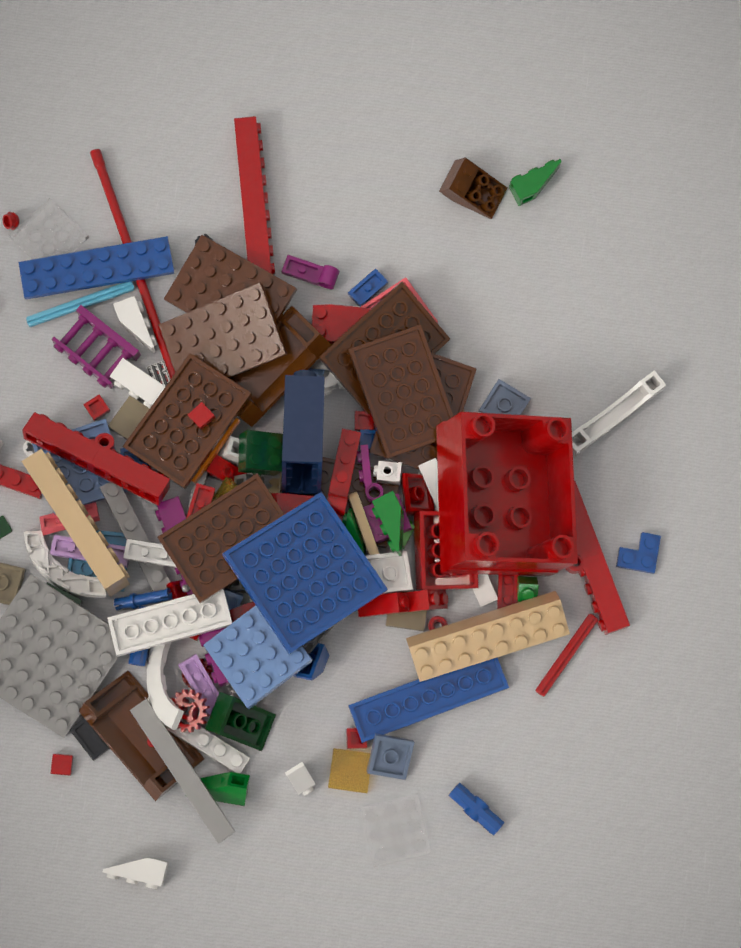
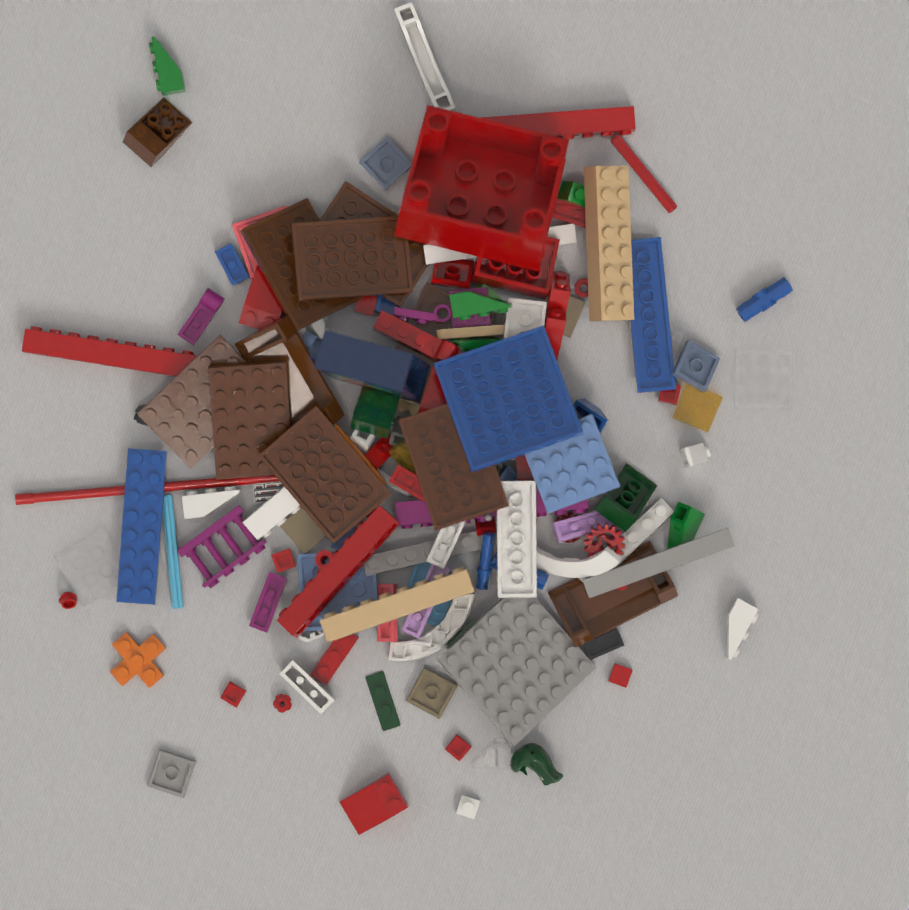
camera: 70 degrees left, 10 degrees up
(53, 403) = (268, 602): none -> magenta plate
(201, 415) = (326, 459): red tile -> none
(391, 478) = (428, 287): white brick -> none
(642, 559) = (572, 74): blue plate -> none

